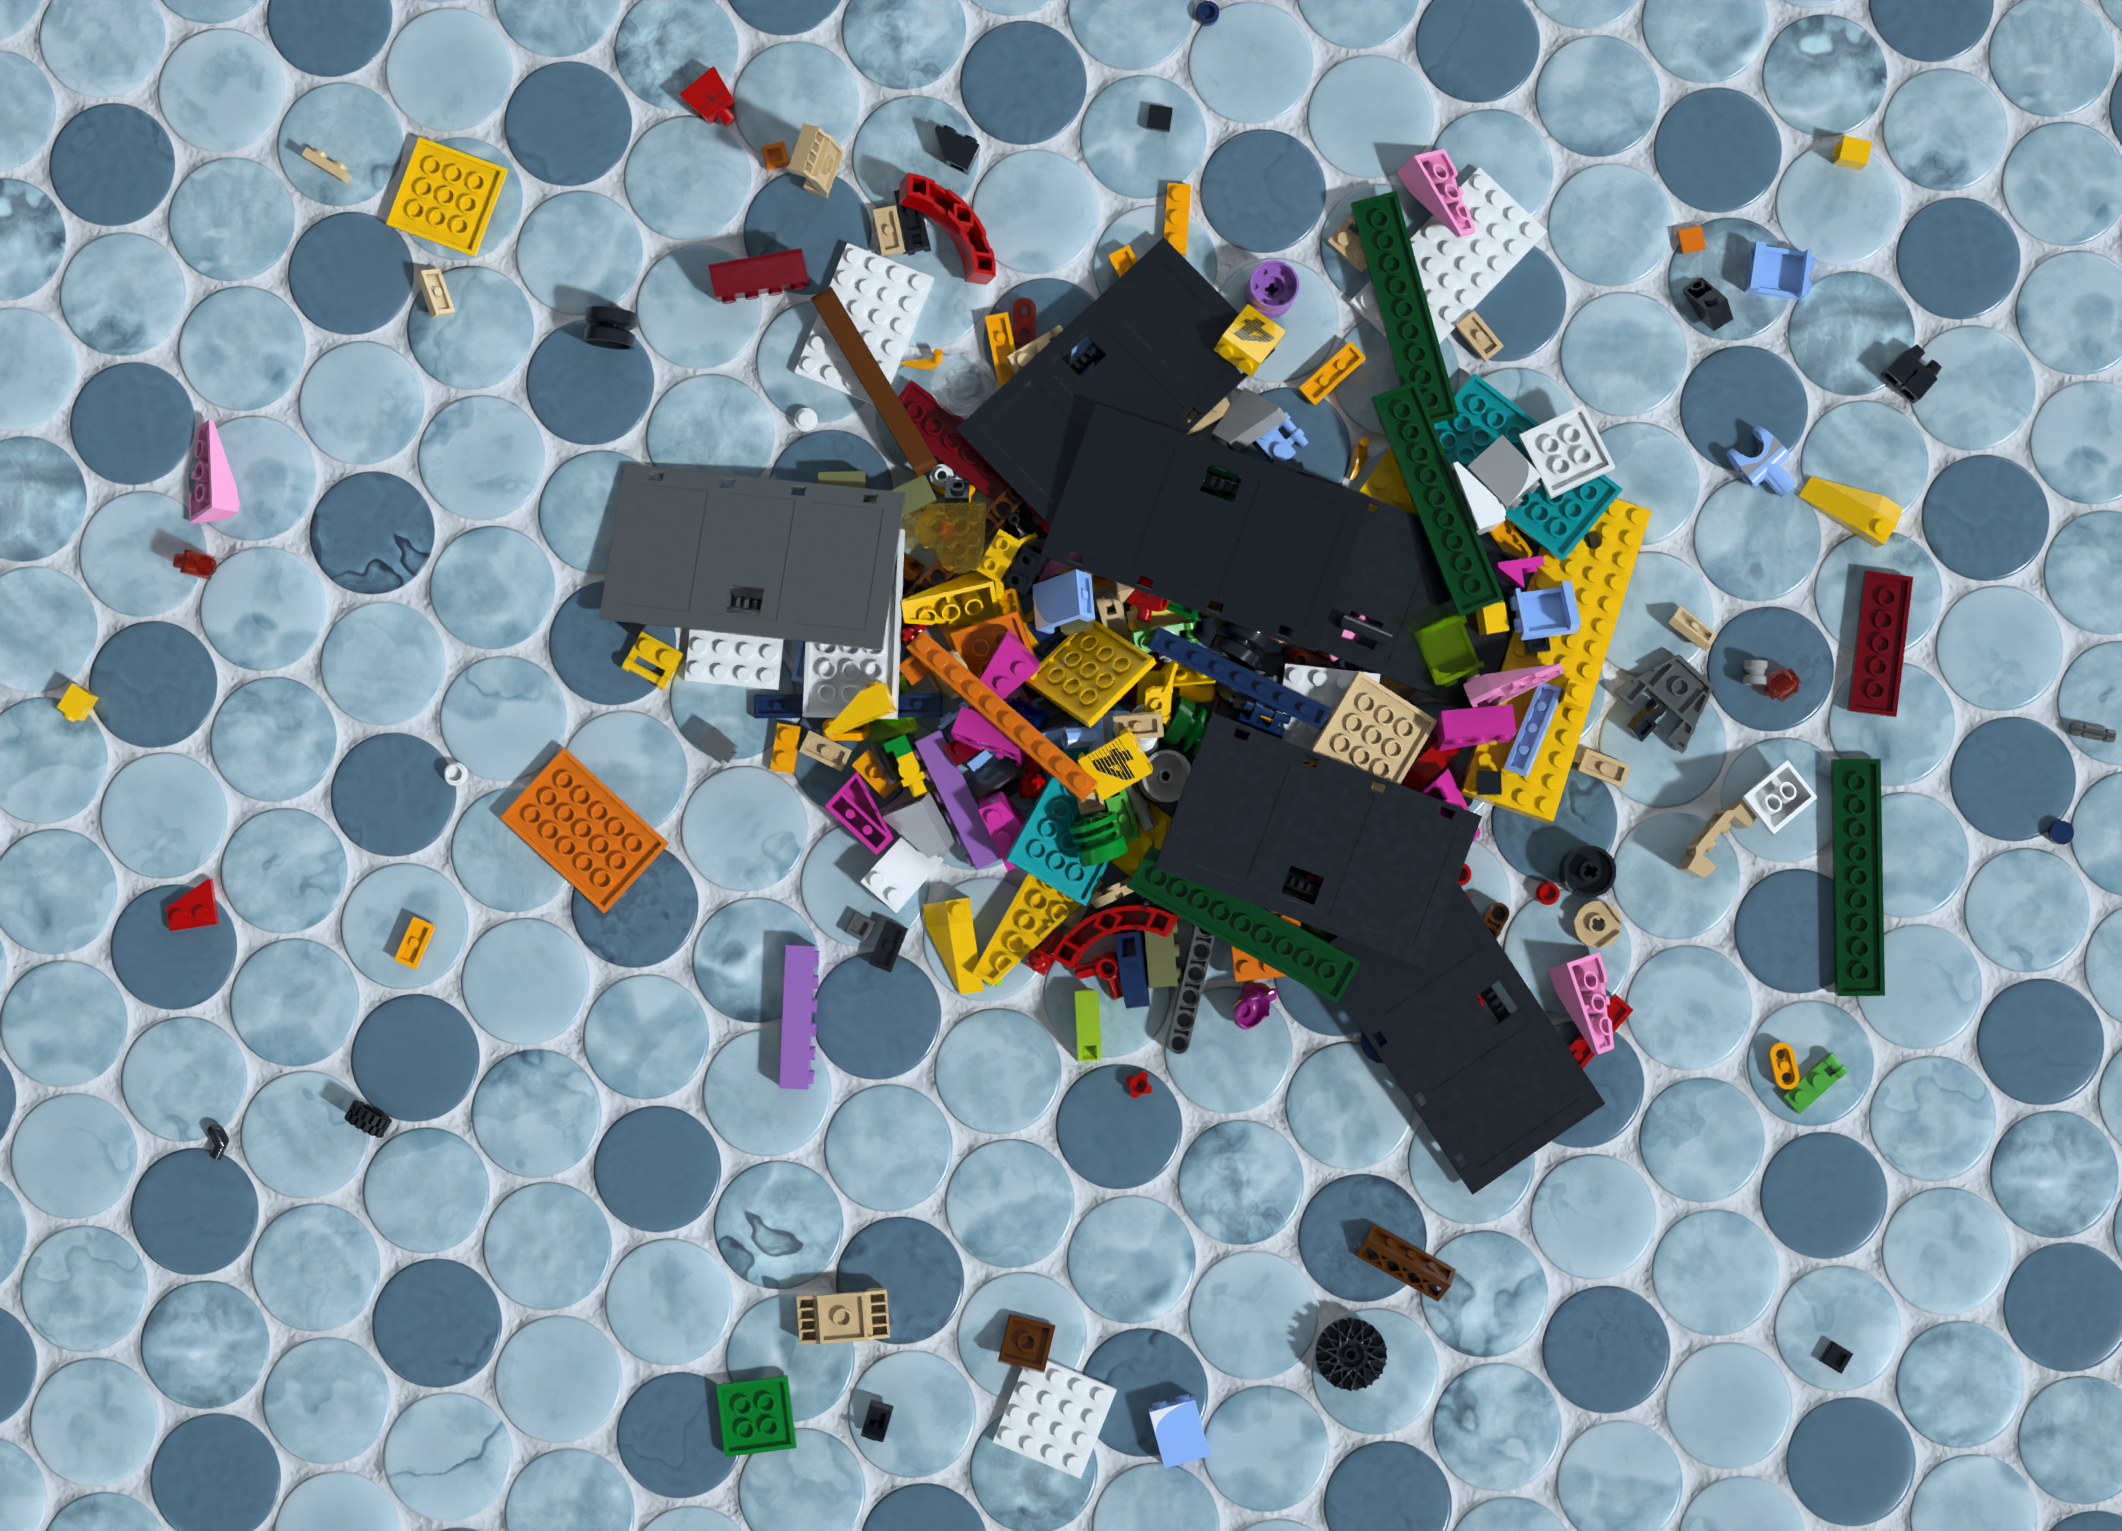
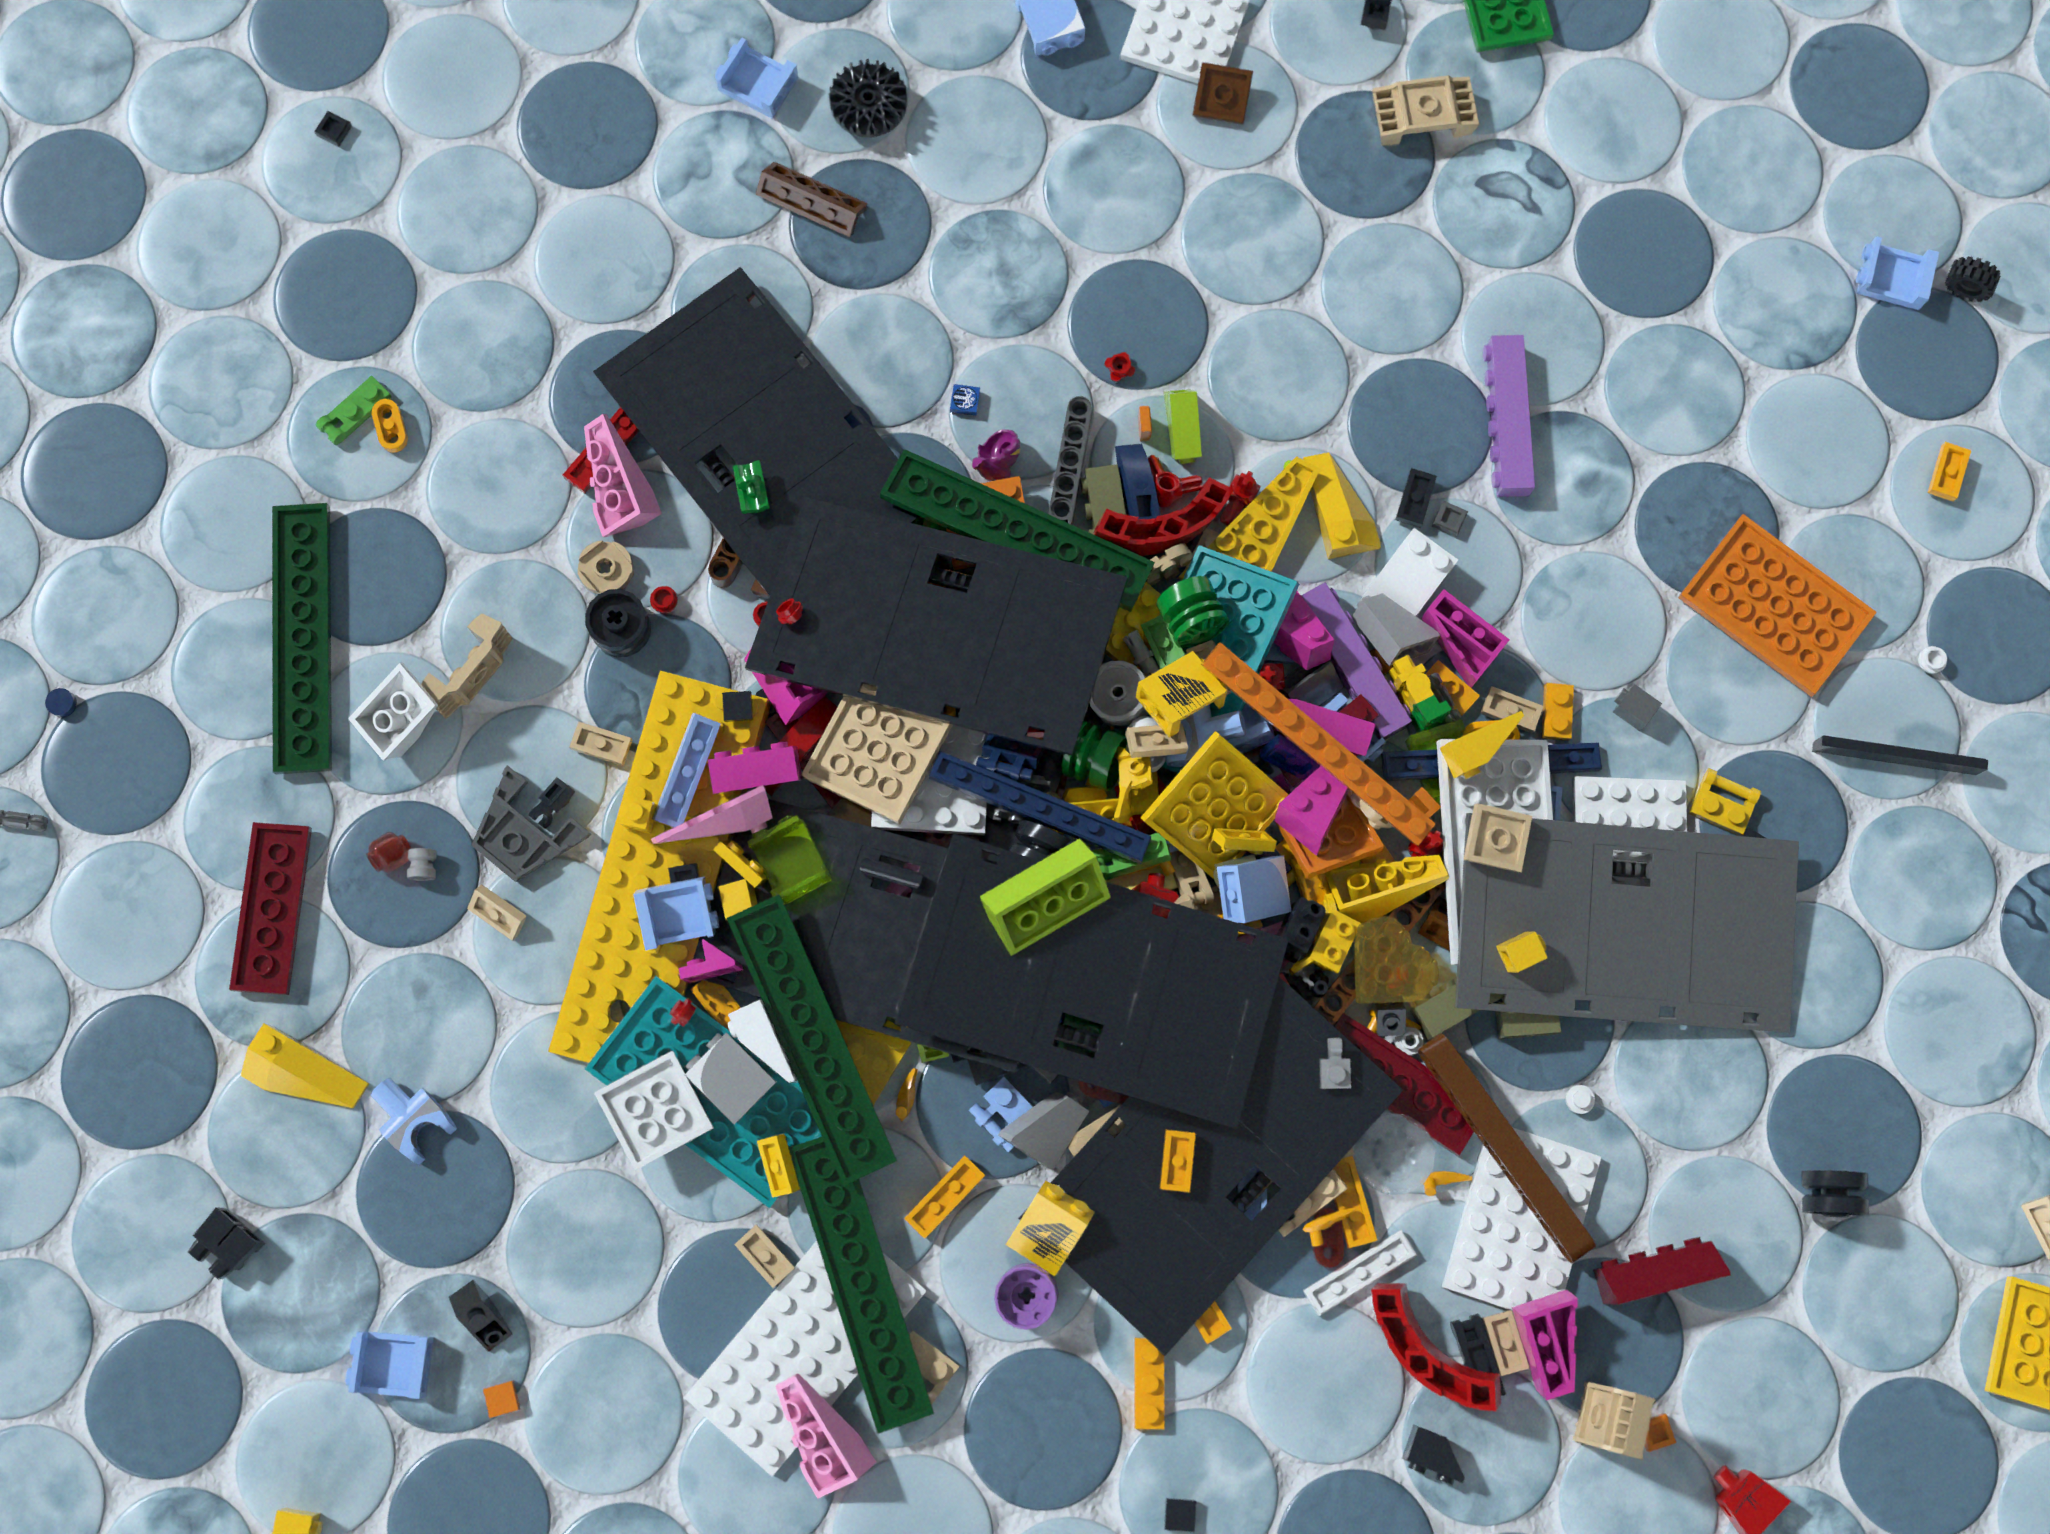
camera: 175 degrees right, 10 degrees down
(433, 1132) = (1896, 275): none -> light blue panel
(498, 690) = (1900, 755): none -> black tile
(847, 532) = (1522, 951): none -> yellow brick
(856, 228) = (1548, 1341): none -> dark pink wedge
(859, 625) = (1497, 837): none -> tan plate
(1000, 293) = (1359, 1272): none -> white tile
(1010, 447) = (1335, 1070): none -> light grey plate
(1034, 329) = (1315, 1226): none -> light orange bar
(1068, 643) = (1253, 841): none -> yellow plate
(1121, 1028) = (1144, 423): none -> orange tile
(1144, 383) = (1177, 1160): none -> light orange plate
(1242, 594) = (1046, 896): none -> lime slope
(1277, 1061) = (965, 399): none -> blue tile
(1442, 859) = (789, 611): none -> red plate
(1451, 1384) = (755, 79): none -> light blue panel
(1466, 403) = (778, 1165): none -> yellow plate
(1471, 977) = (751, 487): none -> green hips
(1495, 655) = (733, 855): none -> yellow plate
(1541, 528) = (682, 1012): none -> red plate

